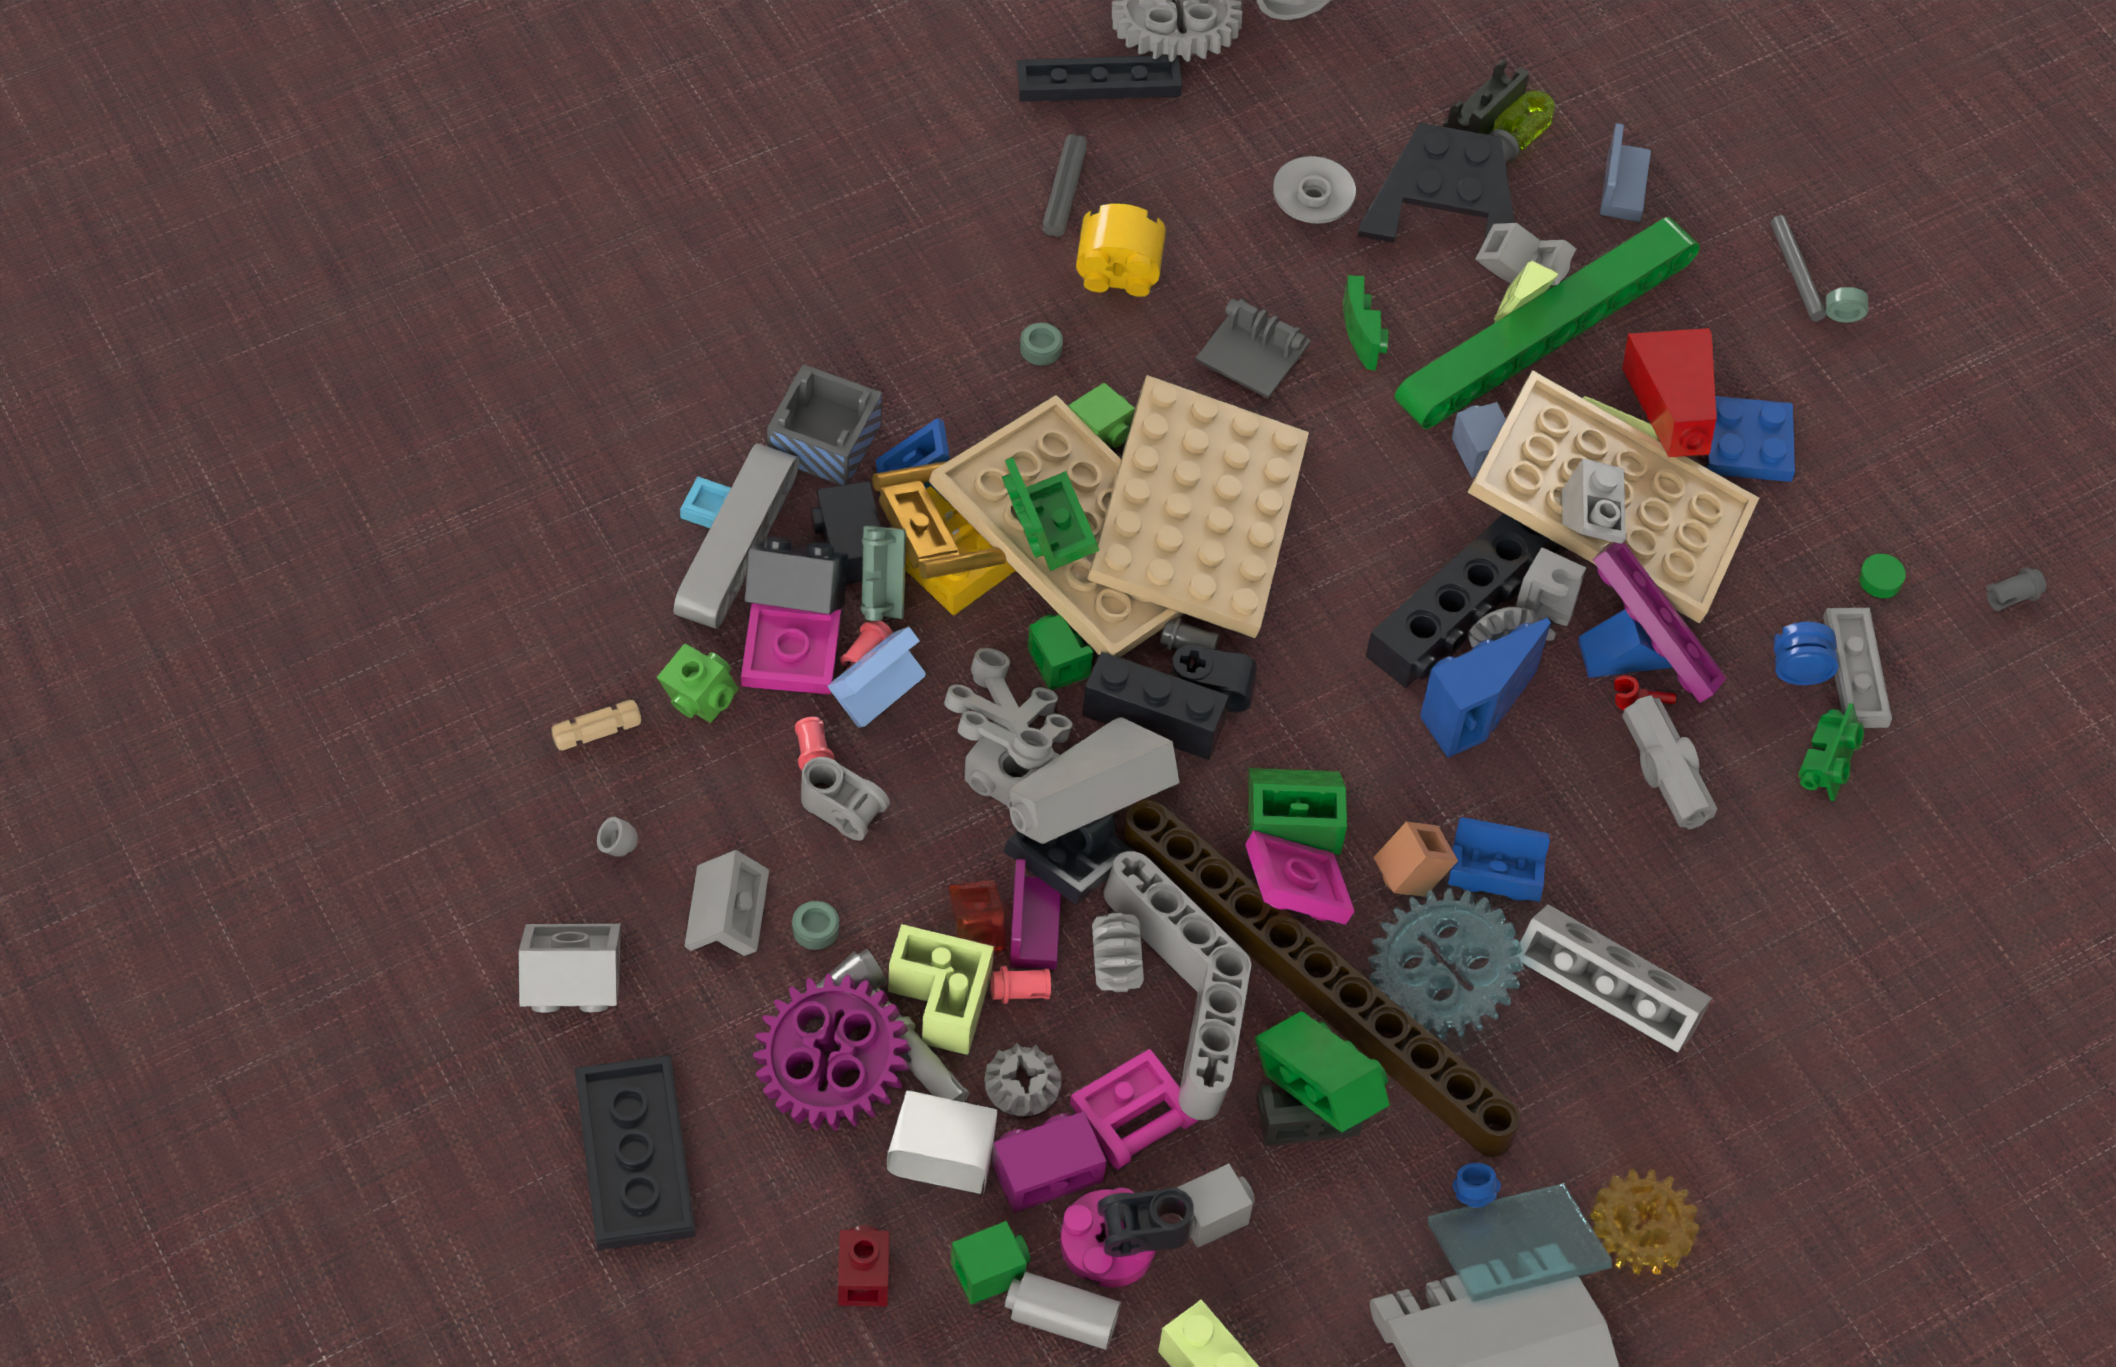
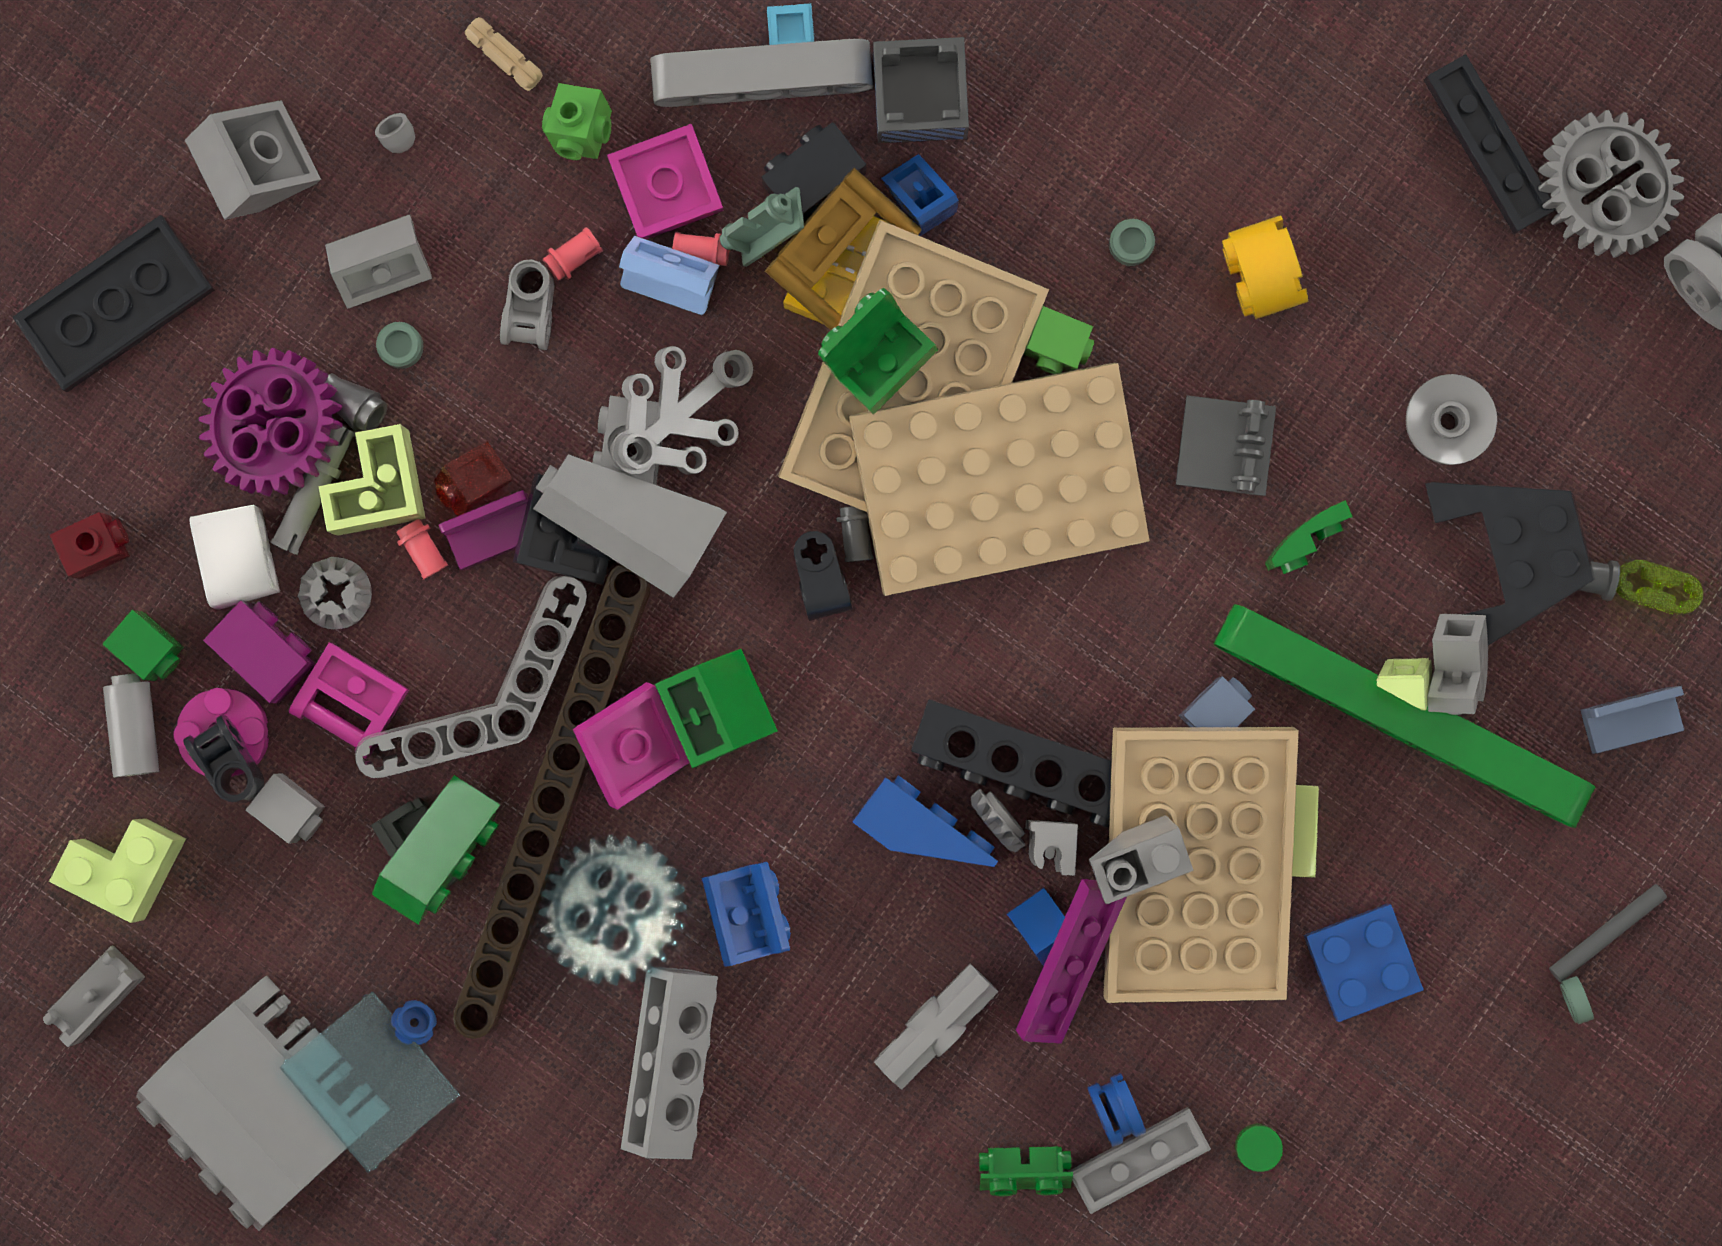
camera: 70 degrees right, 30 degrees up
(796, 576) = (727, 151): brick -> none
(1058, 652) = (777, 420): green brick -> none
(1064, 185) = (1337, 174): dark grey axle -> none
(1117, 952) = (481, 620): light grey gear -> none
(1157, 702) = (760, 536): black brick -> none
(1415, 859) = (705, 840): nougat brick -> none
(1488, 101) = (1658, 542): pearl dark grey hinge -> none
(1629, 684) = (1006, 973): red hand -> none
(1657, 1241) = (442, 1199): clear yellow gear -> none
(1675, 387) = (1369, 872): red slope -> none

